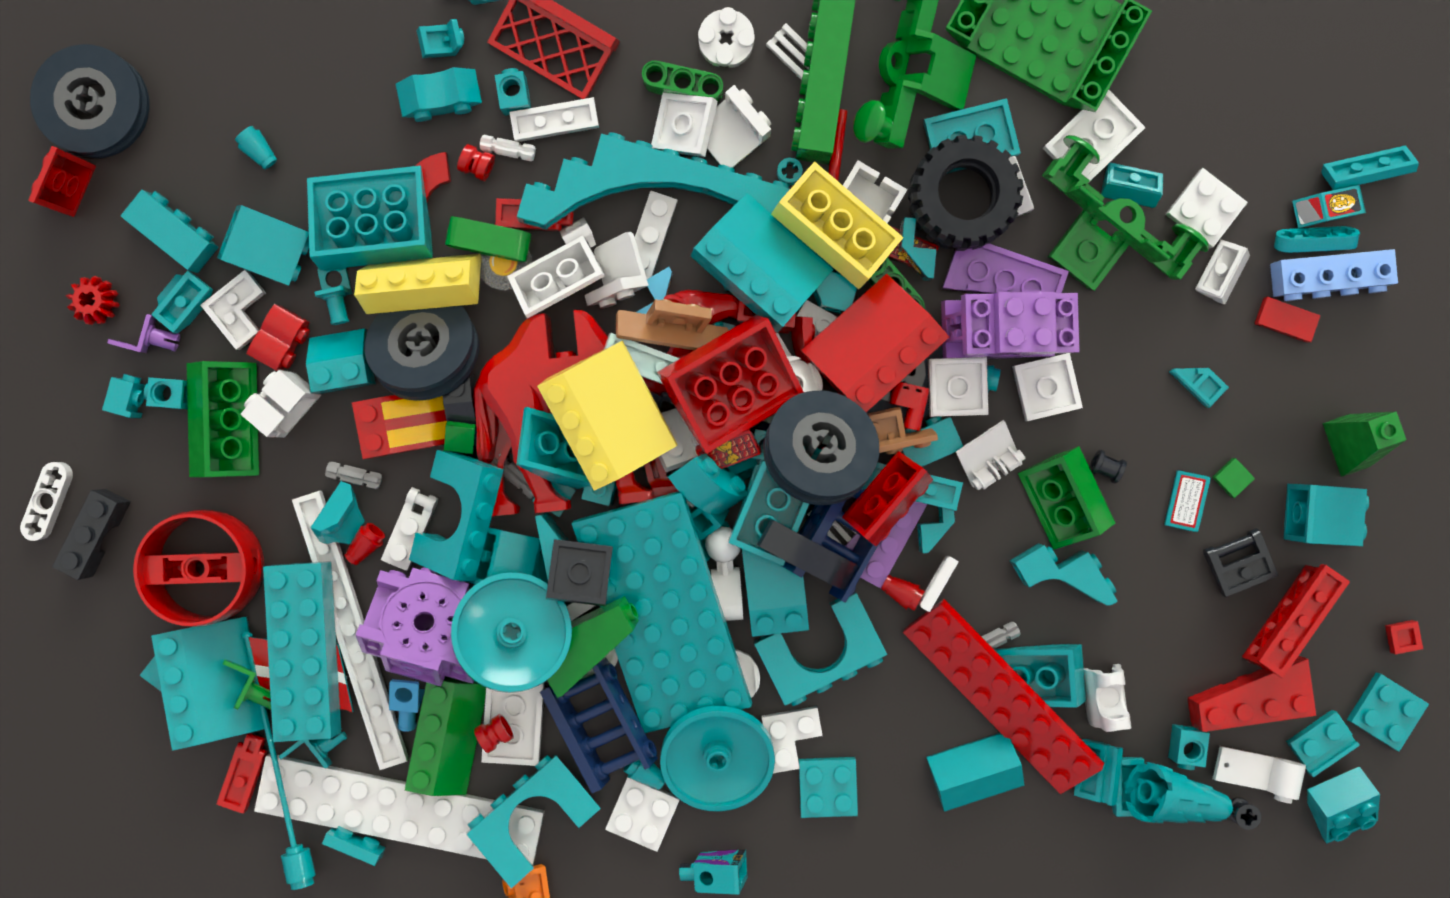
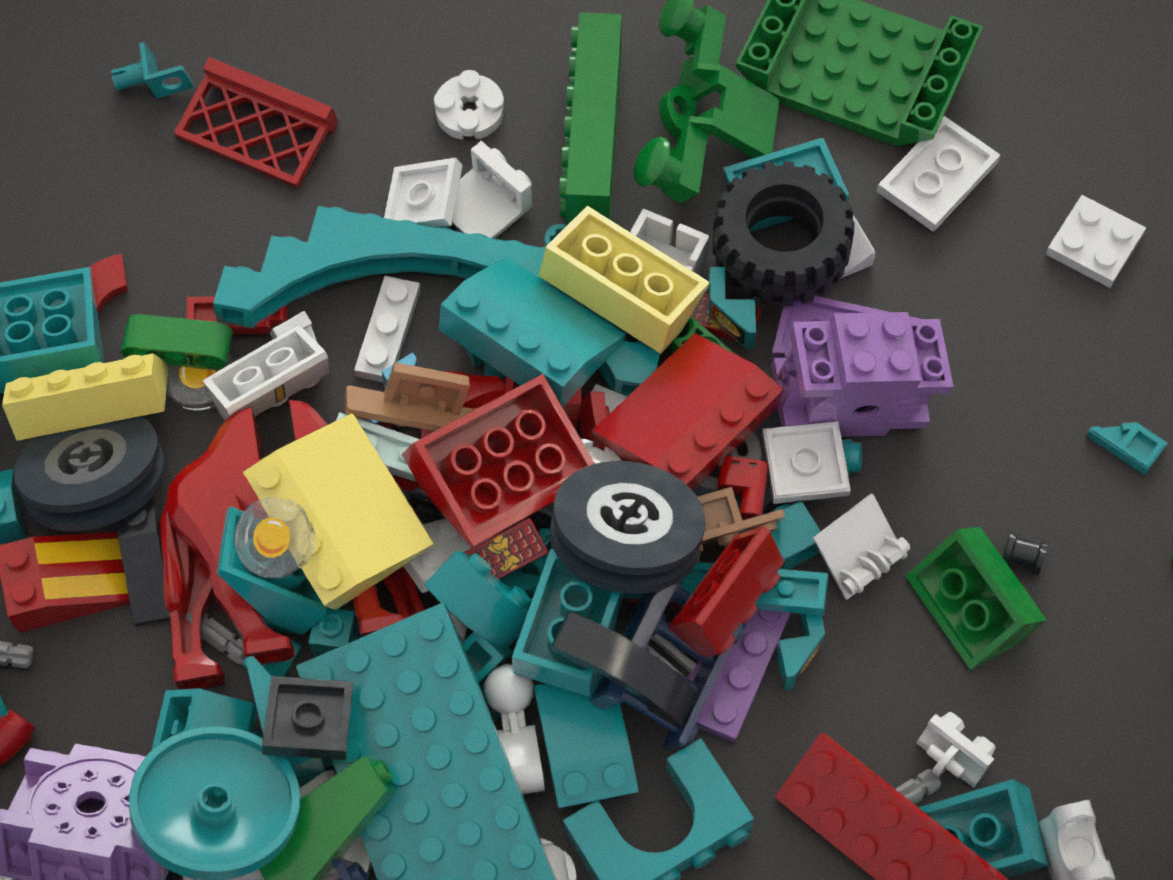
camera: 10 degrees left, 25 degrees down
(408, 523) = (74, 711): white plate -> none
(438, 93) = (113, 188): teal brick -> none
(440, 39) = (116, 134): teal bracket -> none
(459, 437) = (140, 582): green tile -> none
(476, 162) = (160, 261): red wheel -> none
(478, 489) = (165, 630): teal arch -> none
(507, 148) = (200, 244): white axle -> none
(512, 103) = (208, 193): teal brick -> none
(554, 119) = (259, 207): white plate -> none
(559, 442) = (274, 537): none -> clear tile
(621, 270) = (352, 362): white bracket -> none
(672, 73) = (405, 143): green beam -> none
(771, 44) = (536, 100): white tile -> none
(835, 161) = (619, 196): red bar -> none
(903, 592) = (768, 740): red cone -> none
(937, 583) = (813, 711): white tile -> none
(1032, 614) = (954, 751): none -> white hips
(1047, 387) = (927, 462): white plate -> none
(1078, 571) = (1007, 693): teal arch -> none
(1088, 249) = (954, 294): green piece -> none
(1133, 184) = (997, 224): teal slope -> none
(1187, 501) = (1141, 590): slope -> none
(1223, 271) = (1133, 310): white slope -> none

